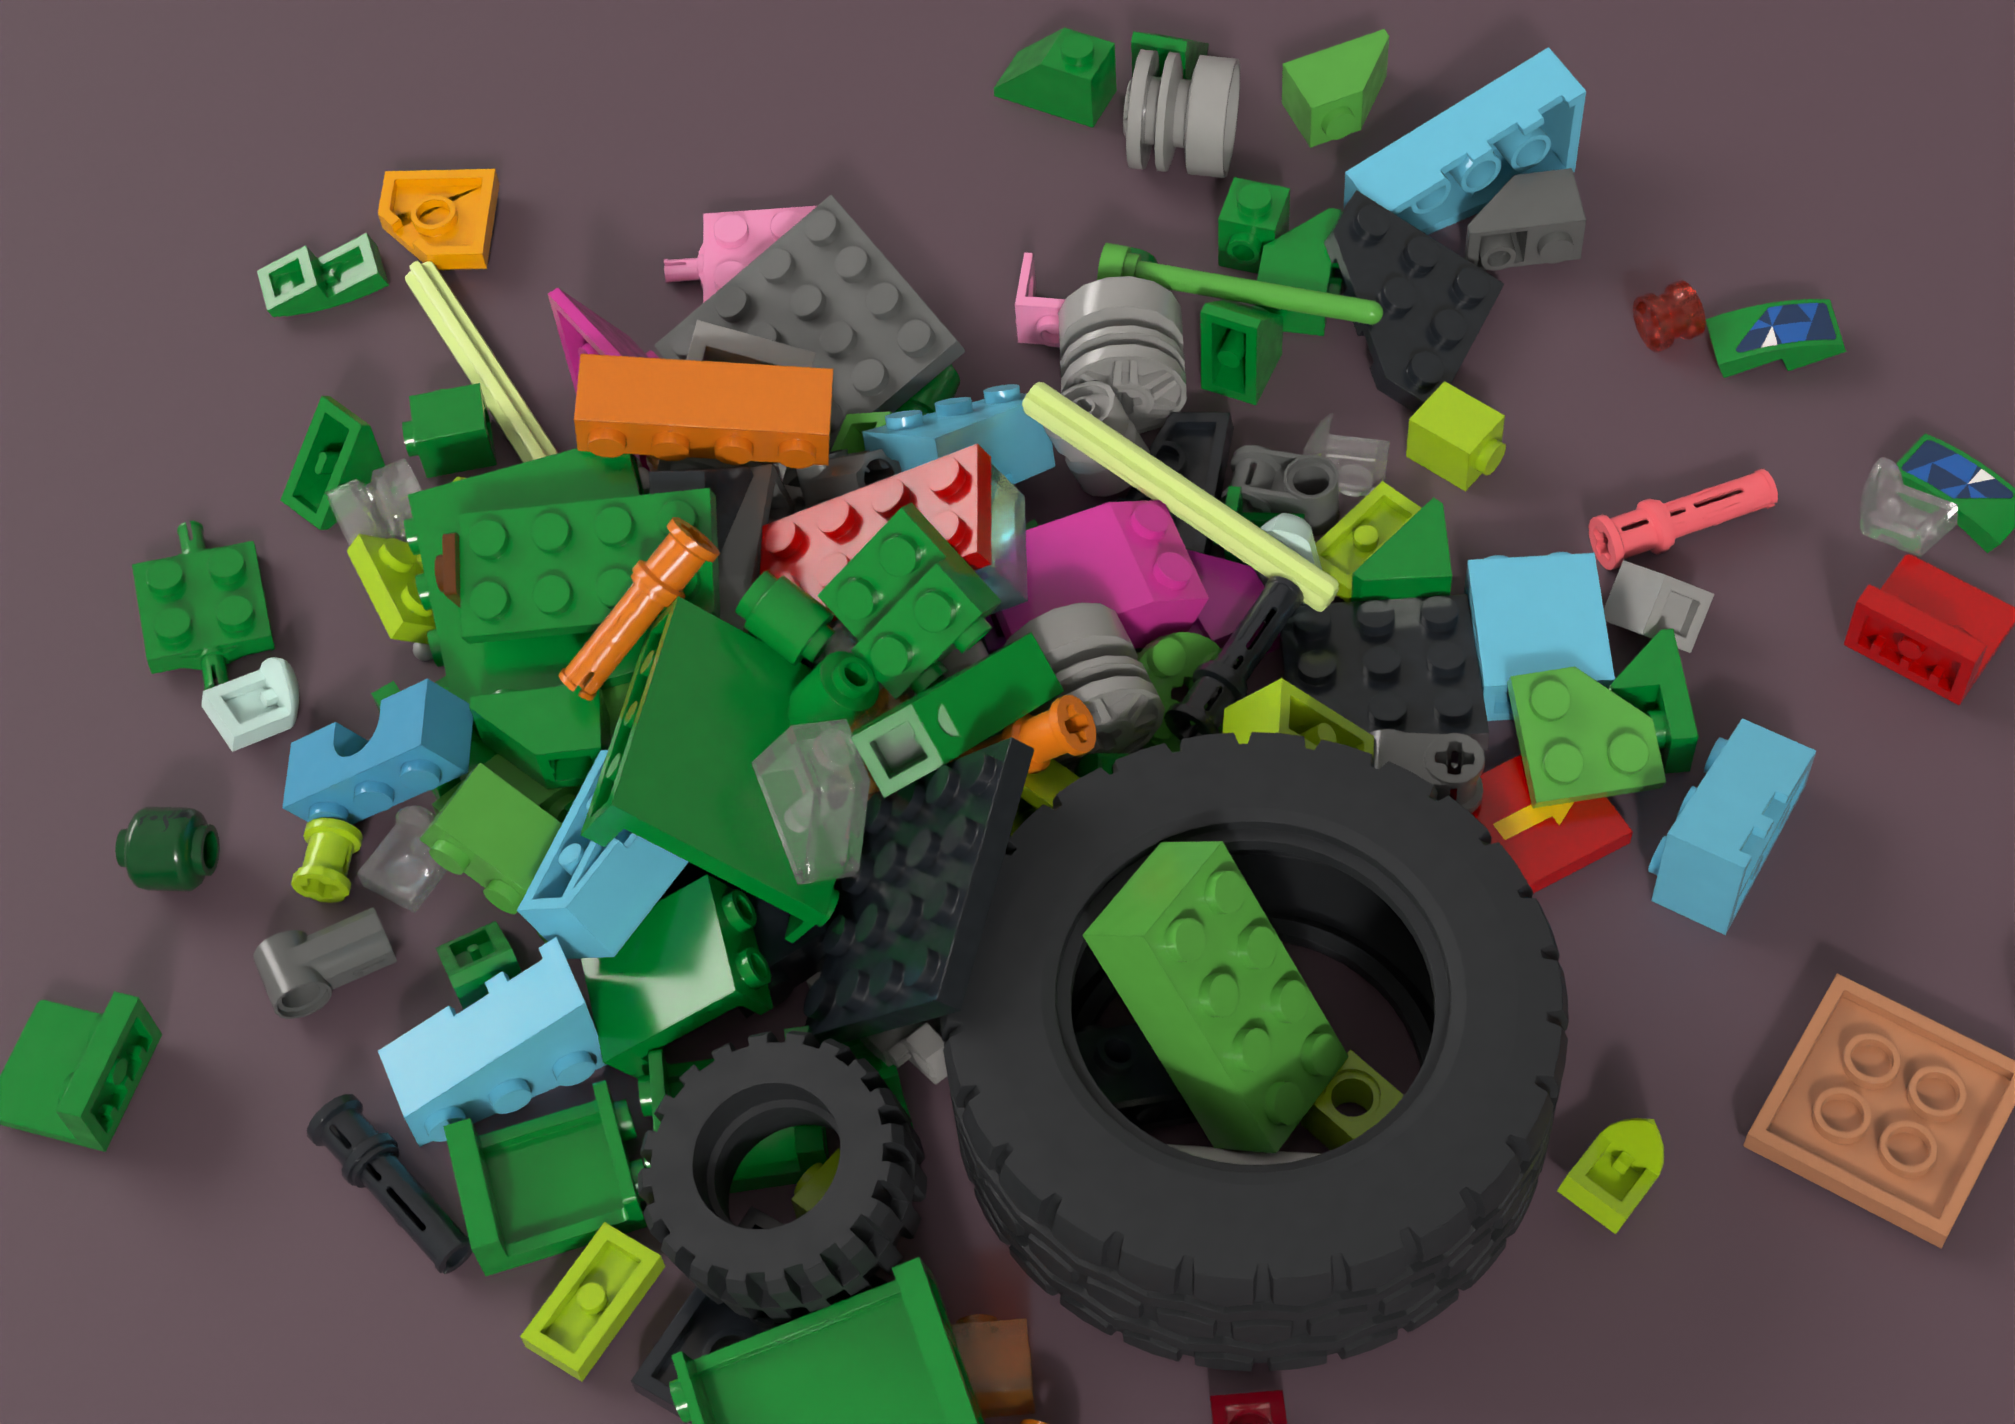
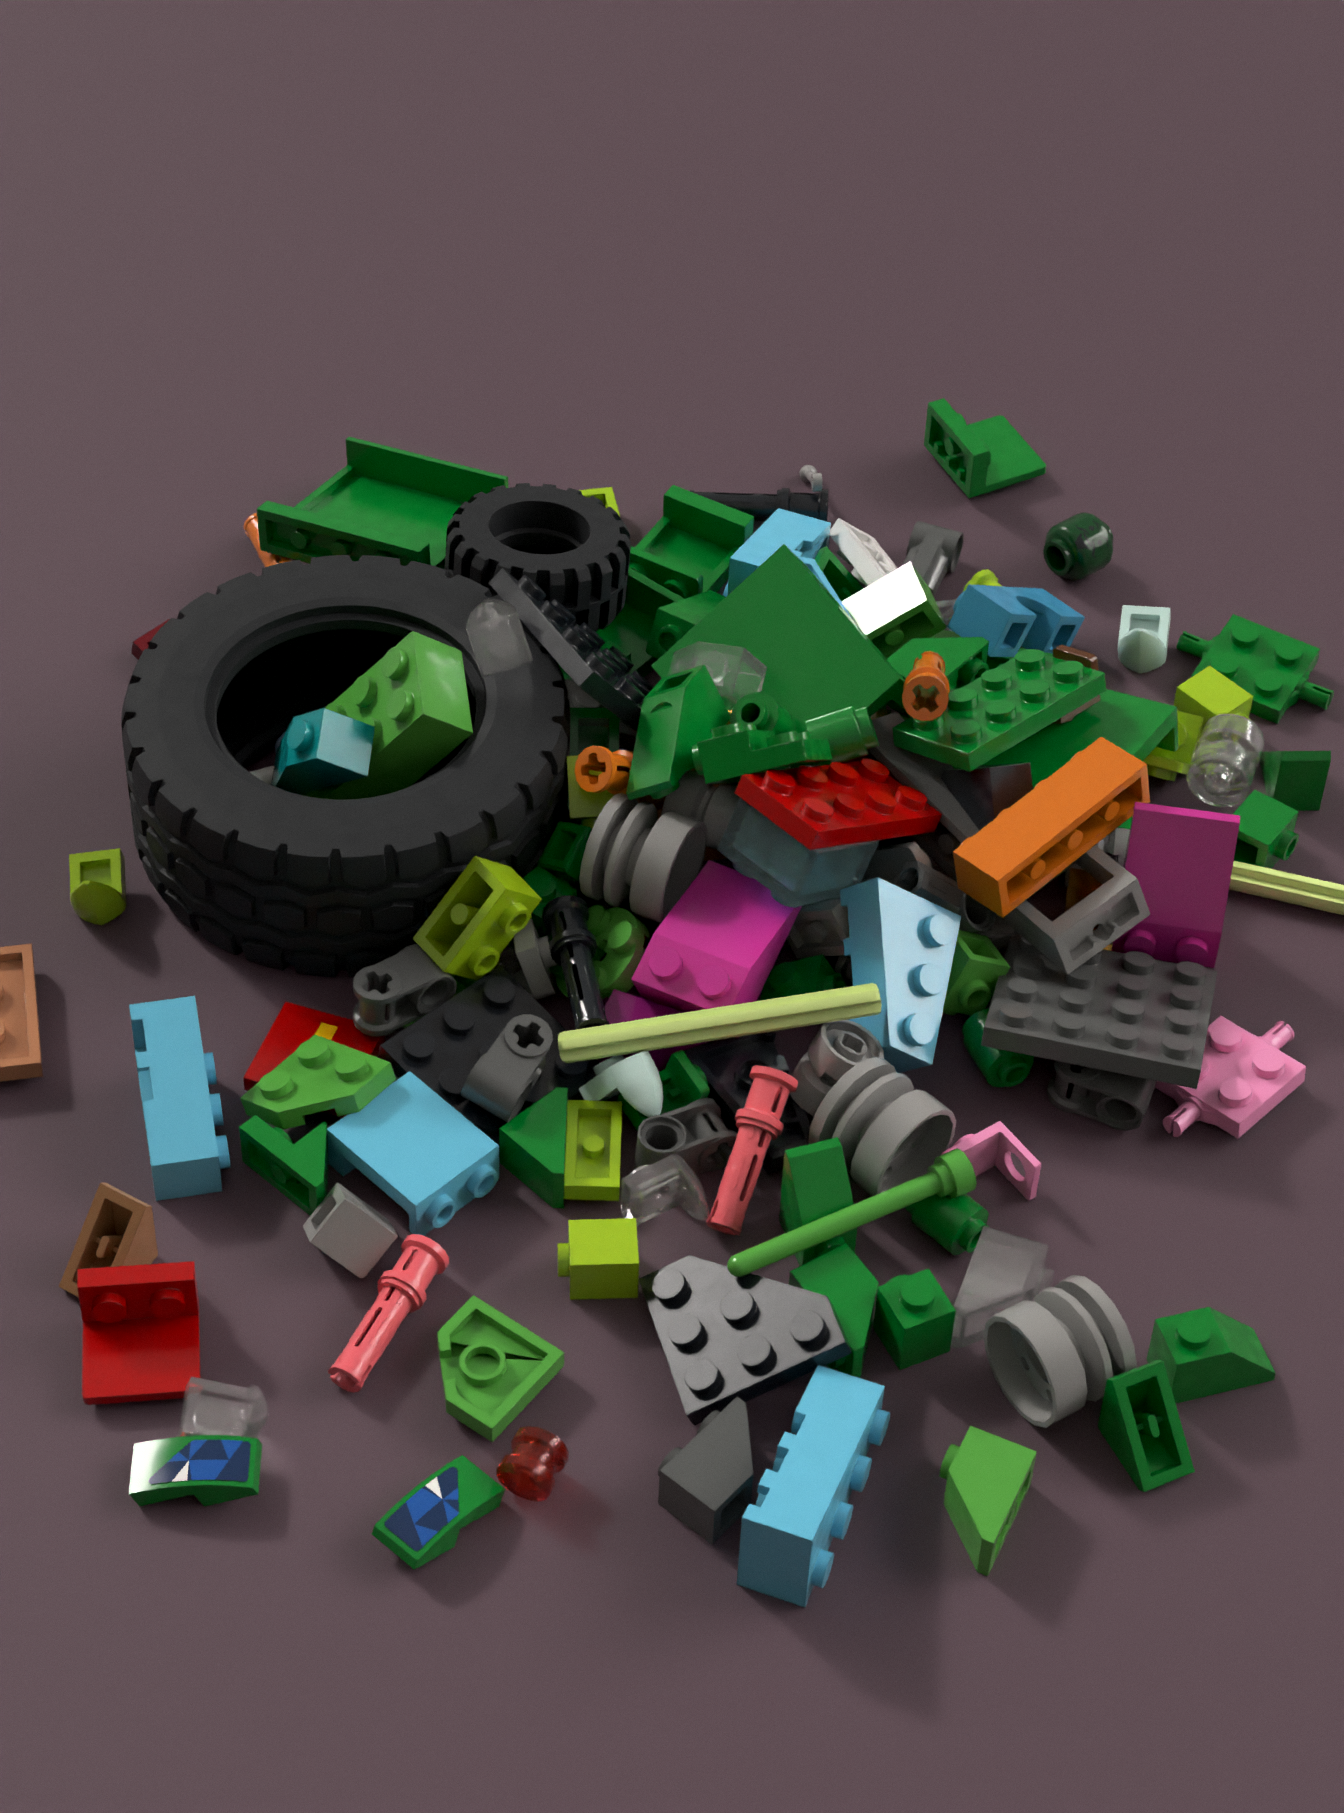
camera: 130 degrees right, 10 degrees down
(311, 578) = (1212, 694): none -> lime brick
(324, 1116) = (809, 475): none -> light grey hinge
(401, 968) = (861, 552): none -> white plate
(1032, 917) = (497, 637): none -> clear plate
(1160, 211) = (999, 1276): none -> clear slope
(1225, 422) = (757, 1126): none -> coral pin
(1325, 997) = (322, 752): none -> teal slope
(1402, 603) = (510, 1067): none -> dark grey piece
(1632, 415) = (492, 1367): none -> bright green plate
(1898, 727) = (114, 1234): none -> medium nougat slope

